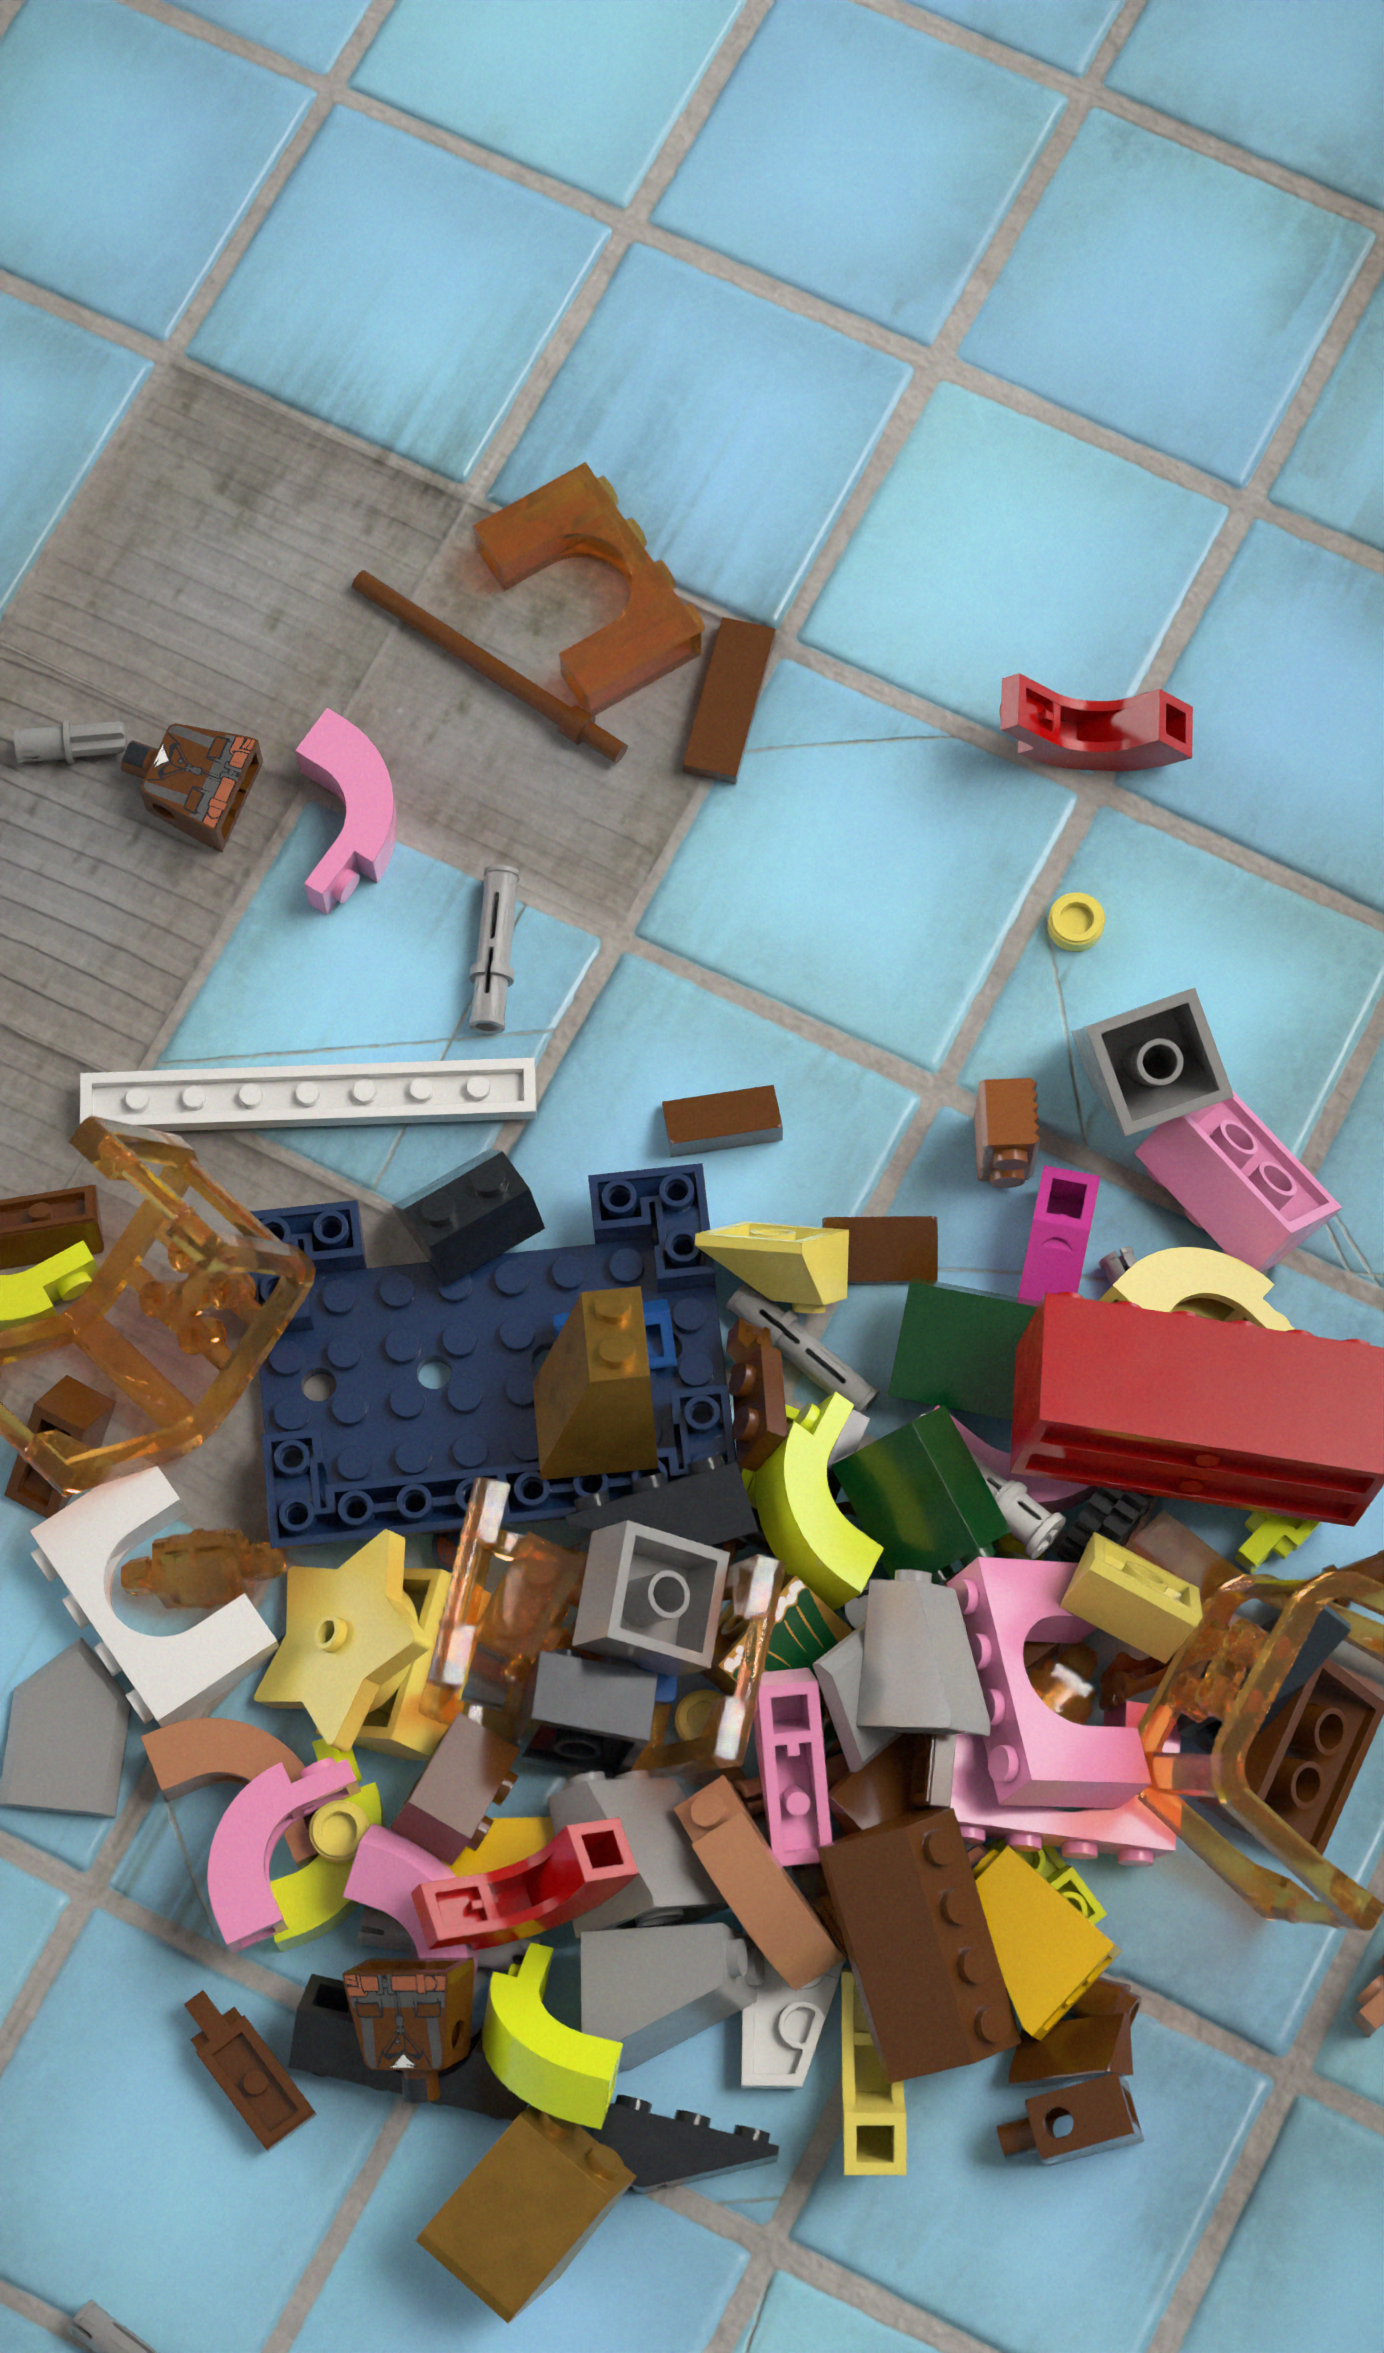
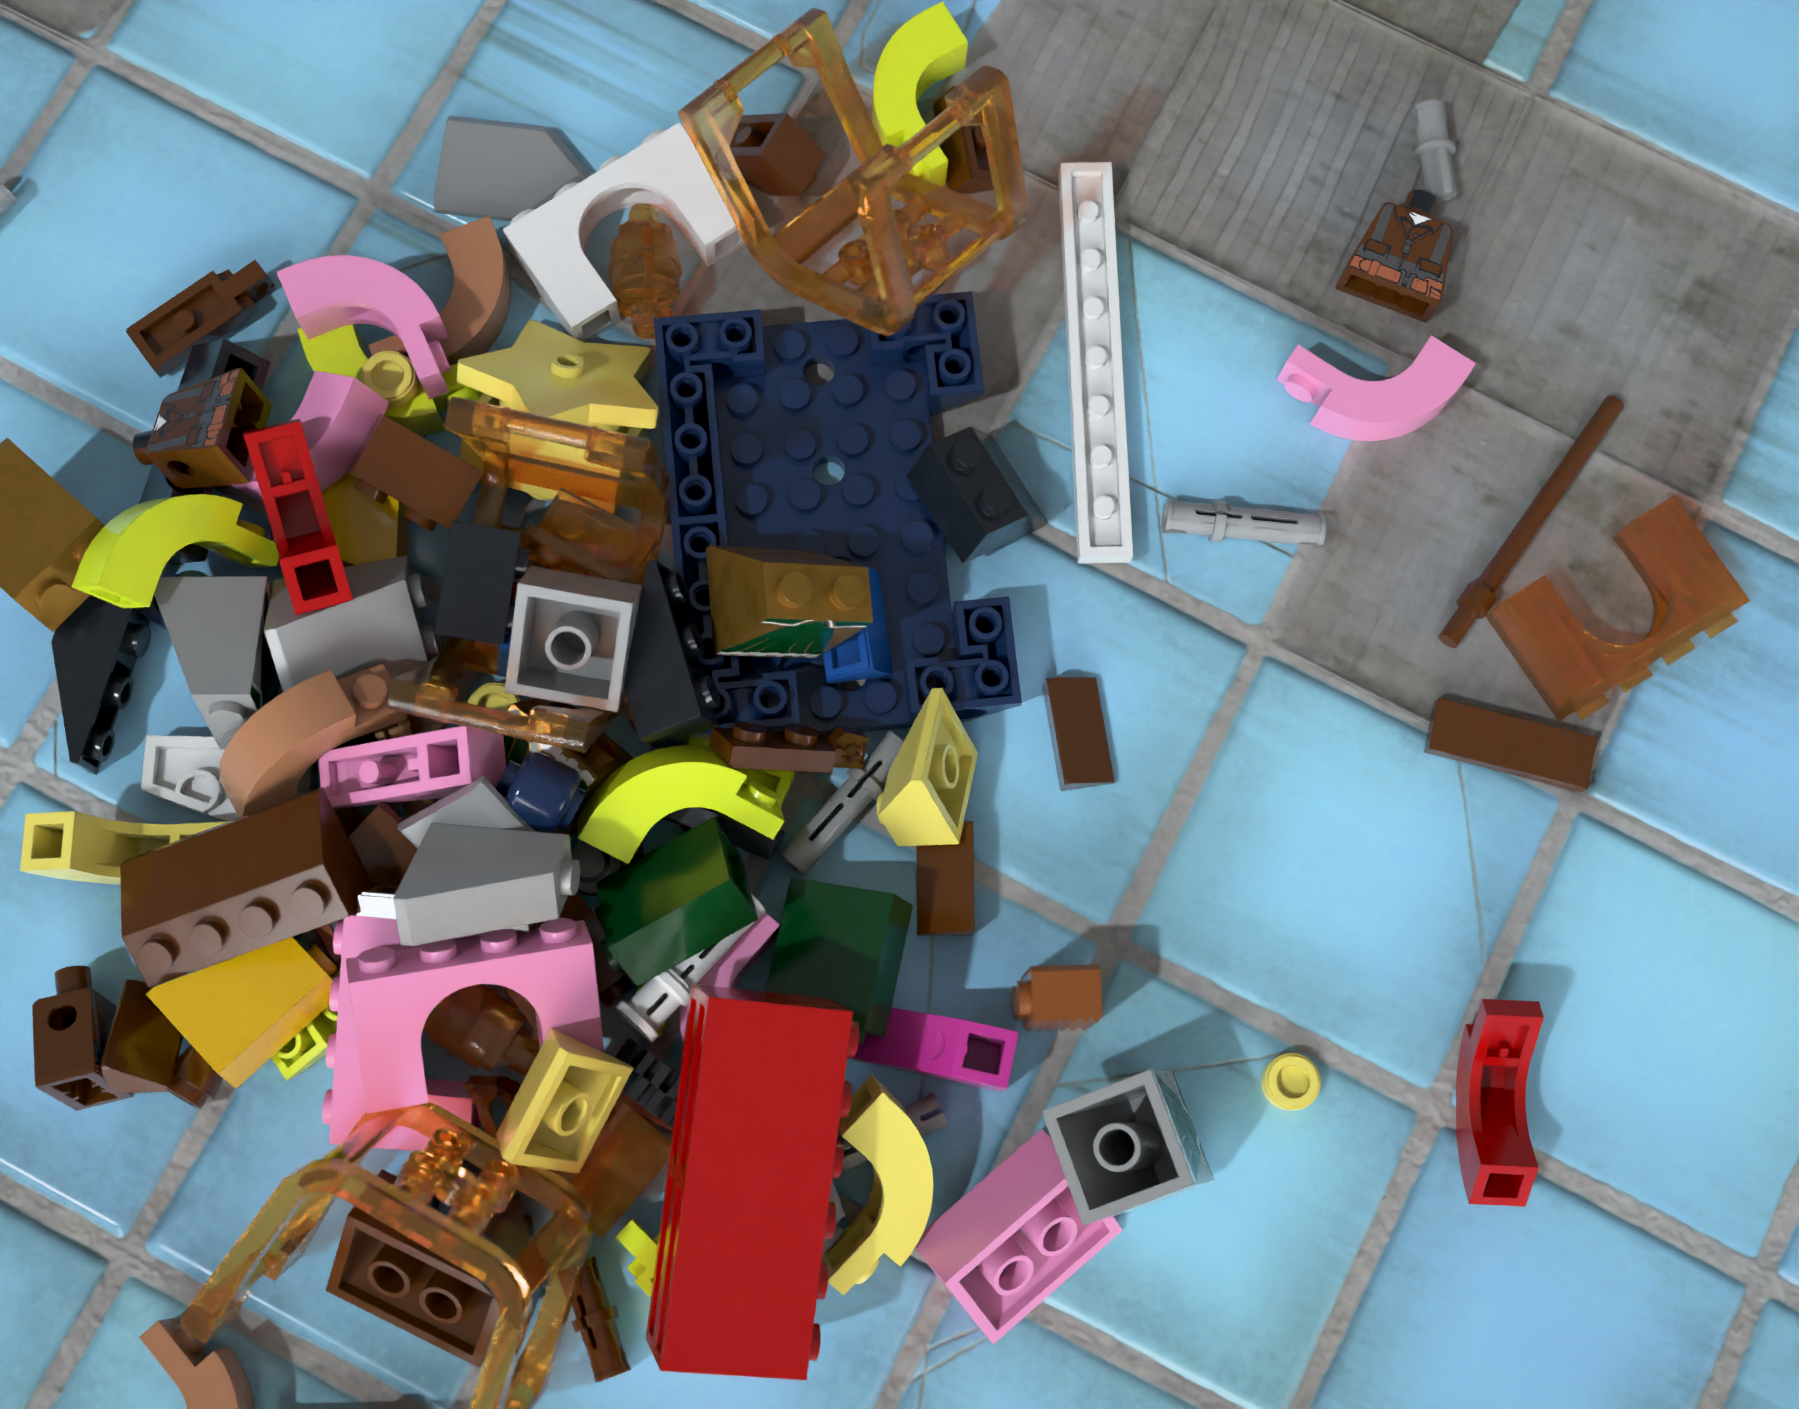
camera: 80 degrees right, 5 degrees up
(817, 1620) = (542, 791): none -> dark blue head

